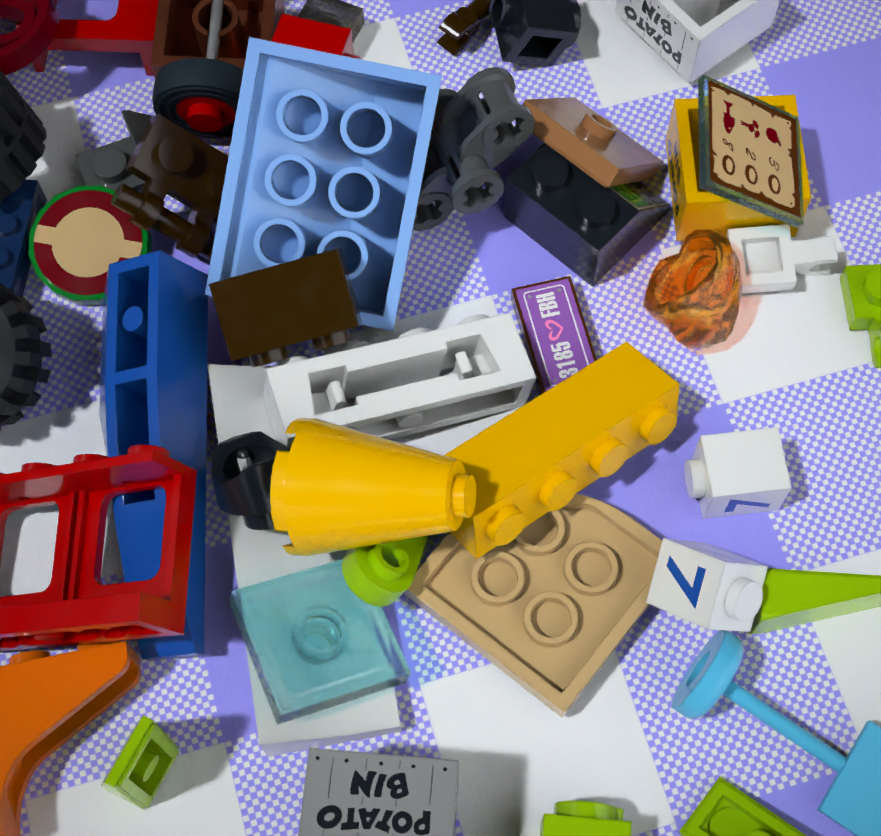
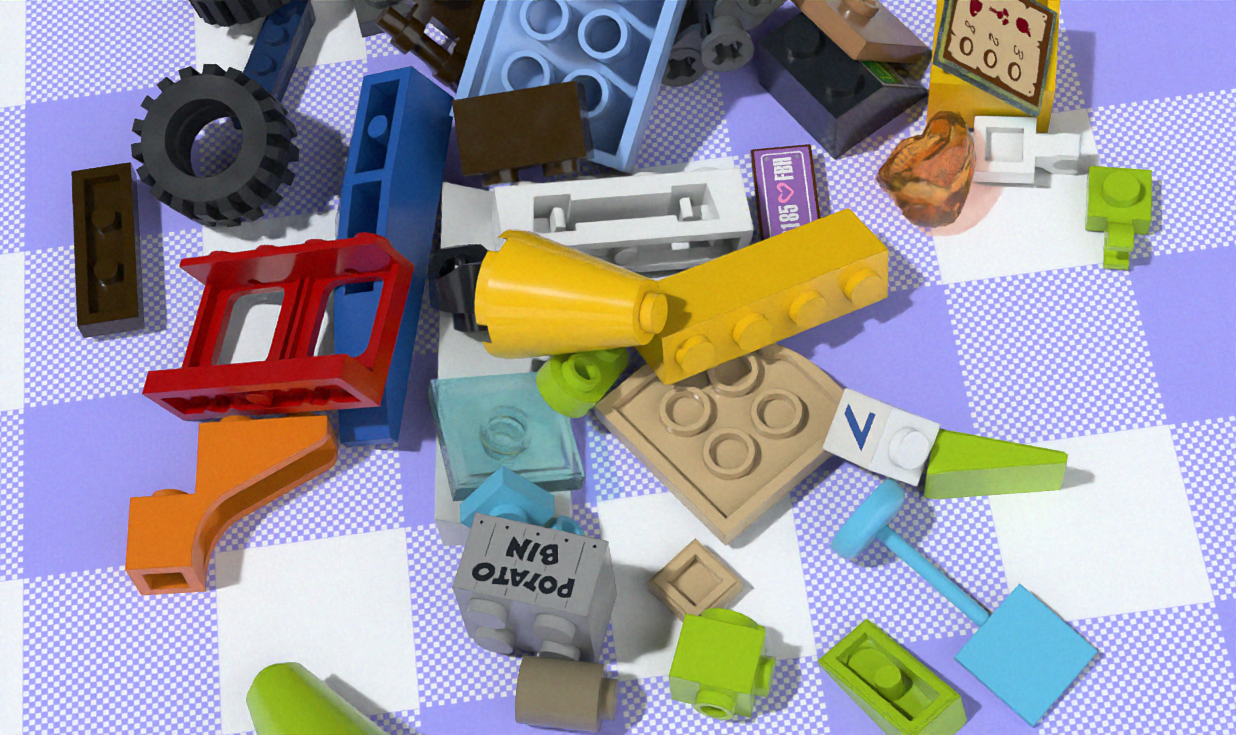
camera: 15 degrees right, 5 degrees down
(78, 240) = (336, 56): tile -> none
(141, 764) = (323, 524): lime slope -> none
(351, 723) = (516, 499): none -> medium azure plate
(538, 766) = (694, 582): none -> tan tile
(738, 473) = (937, 345): white brick -> none

